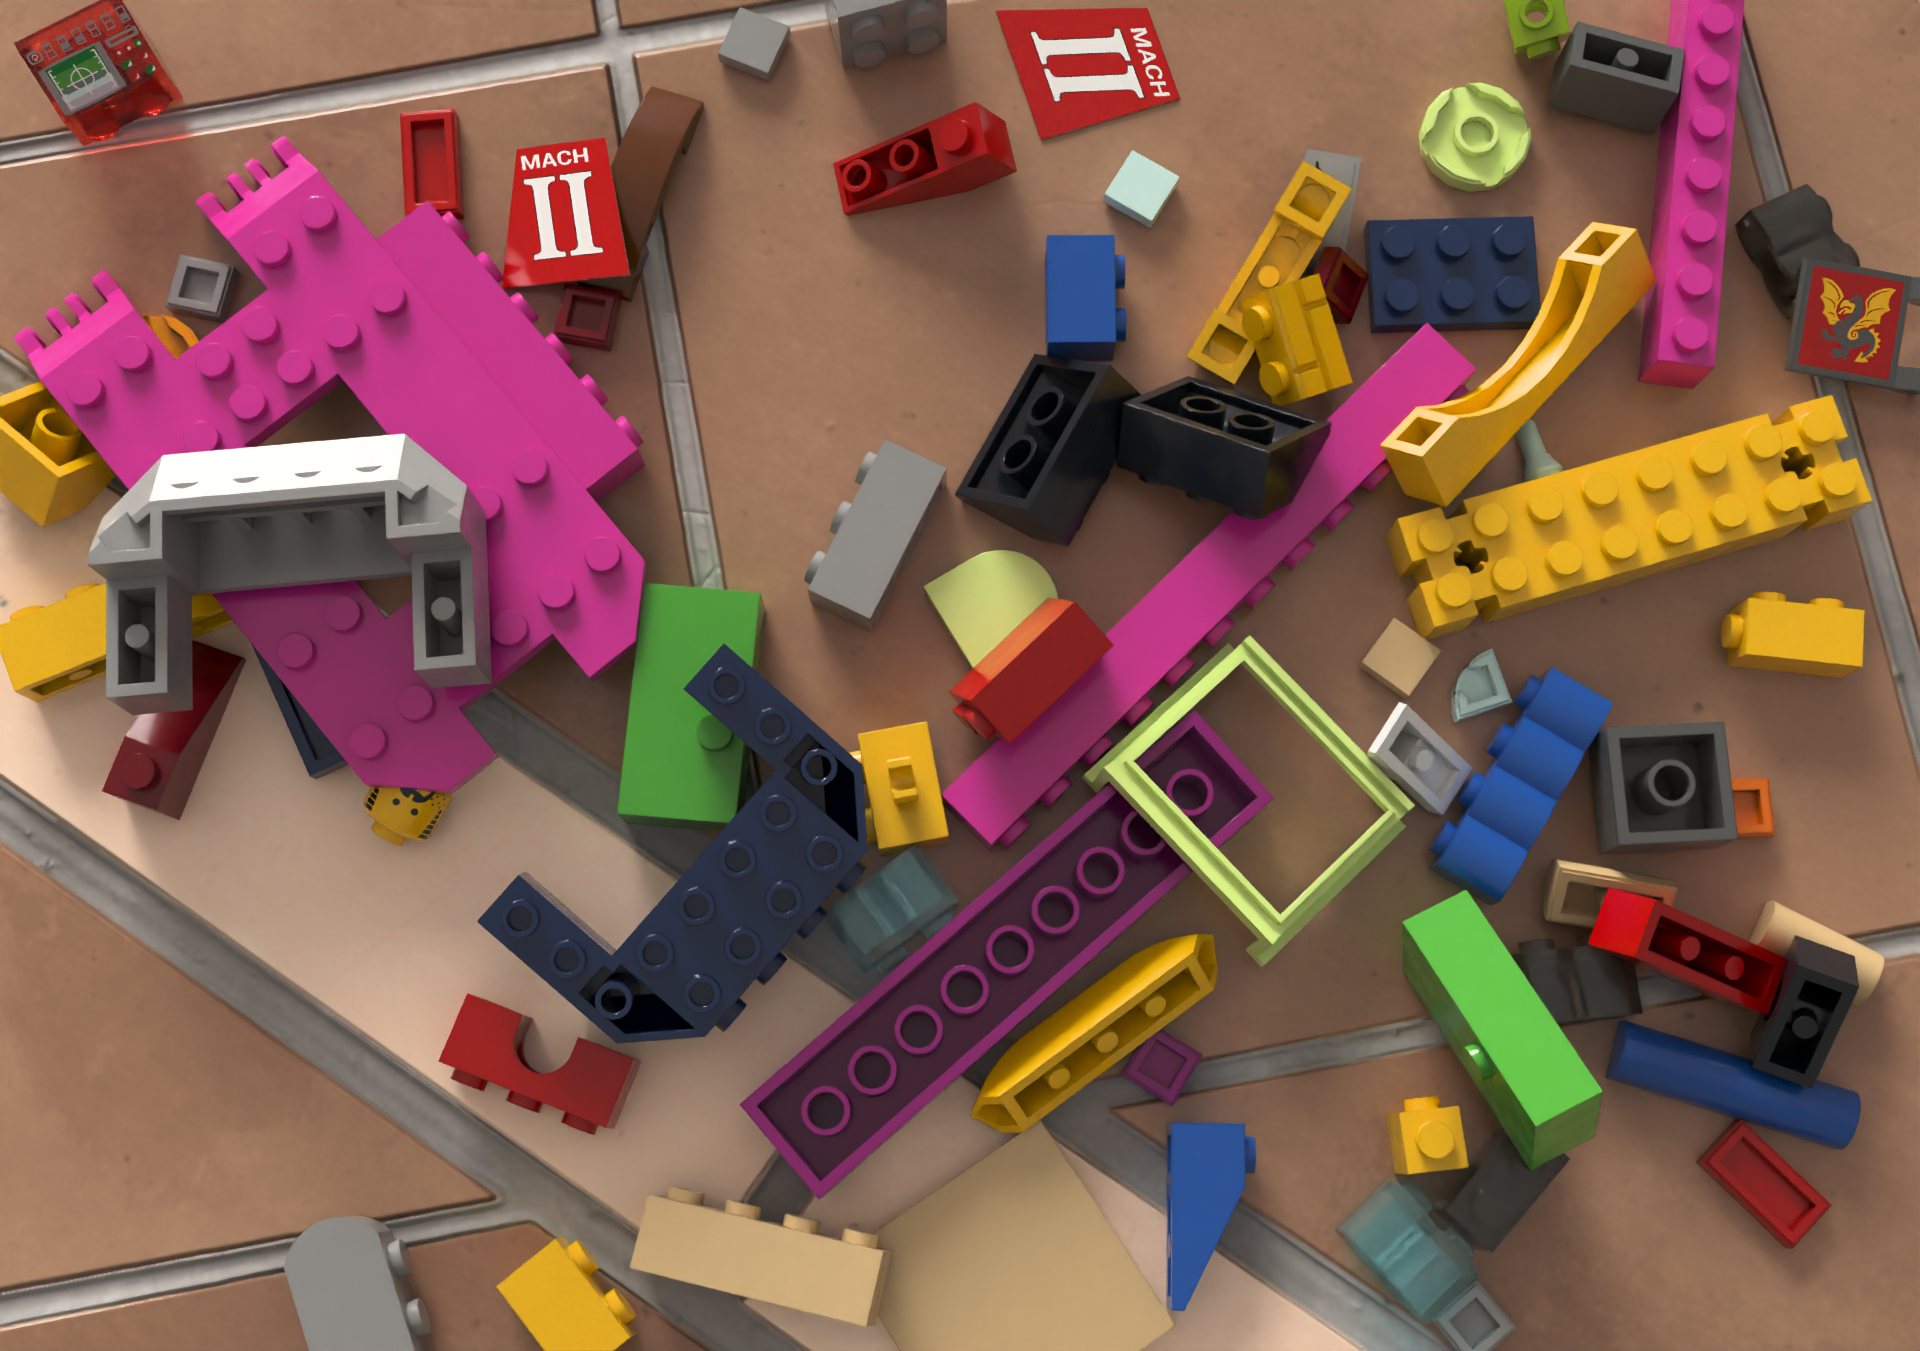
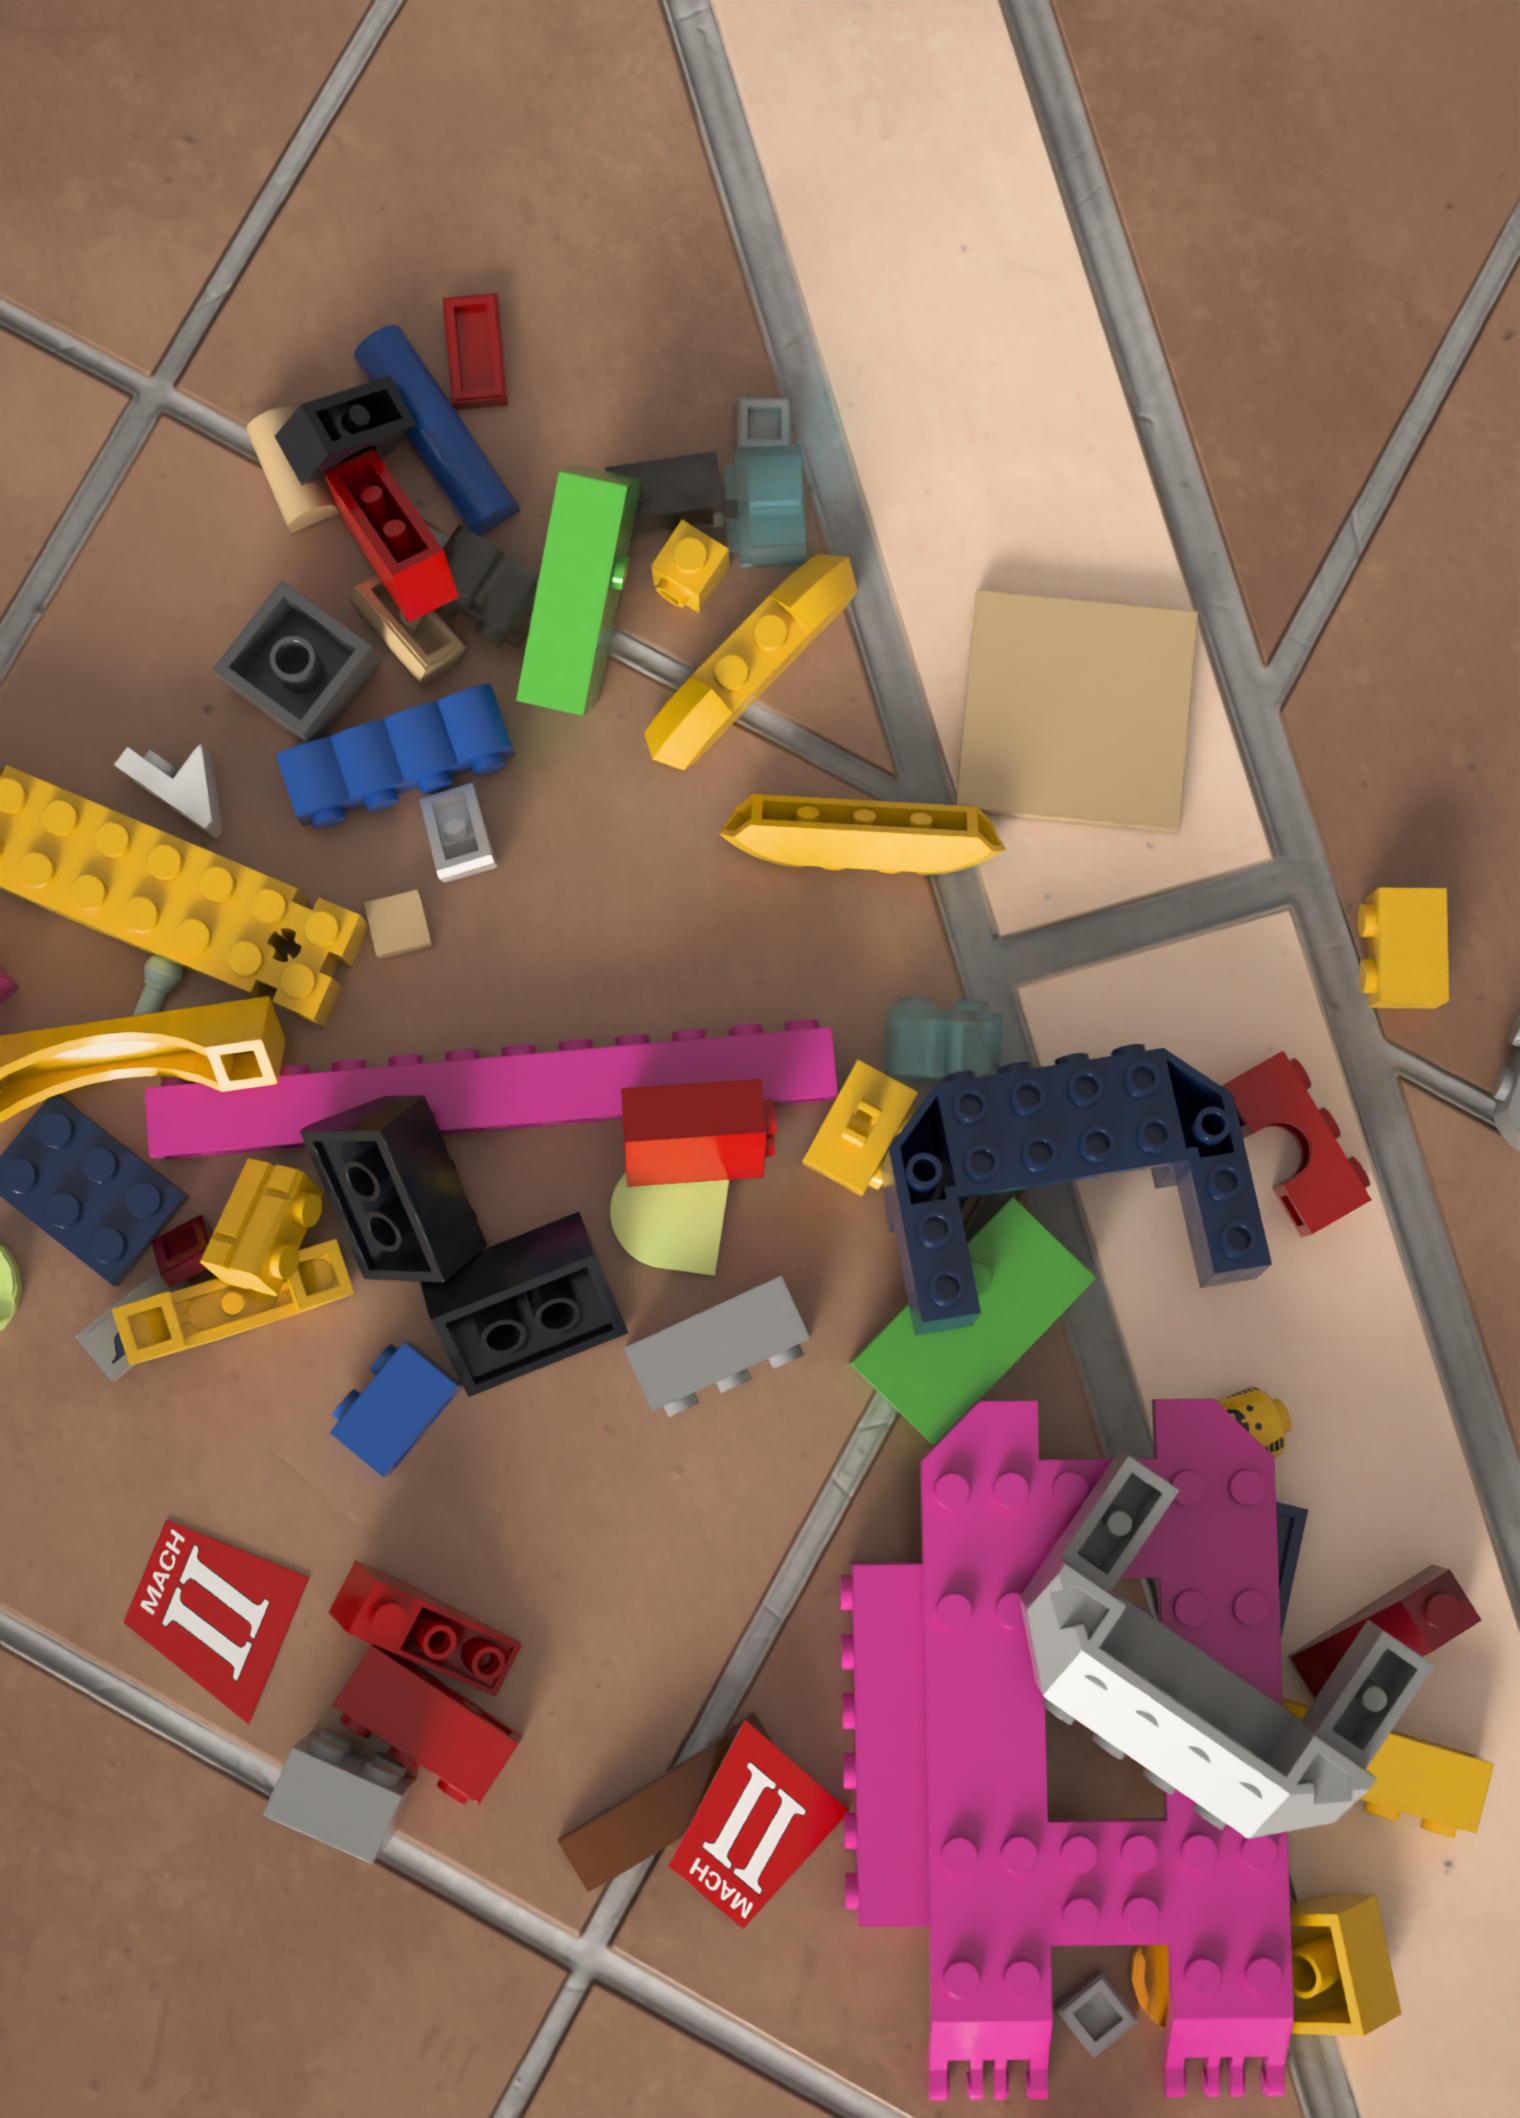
camera: 140 degrees left, 5 degrees up
(432, 161) = (825, 1970): red tile -> none
(587, 317) = (800, 1725): dark red tile -> none
(754, 44) = (473, 1858): light grey tile -> none
(762, 1258) = (1239, 869): tan brick -> none
(861, 100) = (426, 1724): none -> red brick
(996, 962) = (883, 938): magenta brick -> none
(1141, 189) = (266, 1464): light aqua tile -> none
(1162, 1066) = (834, 772): magenta tile -> none
(1202, 1190) = (881, 661): blue slope -> none
(1259, 916) = (621, 1016): yellowish green piece -> none
(1310, 1106) = (750, 660): none -> yellow brick
(1479, 688) = (359, 854): light aqua tile -> none
(1650, 622) = (189, 793): none -> white slope
(1753, 808) = (239, 604): orange tile -> none
(1793, 636) = (101, 703): yellow brick -> none

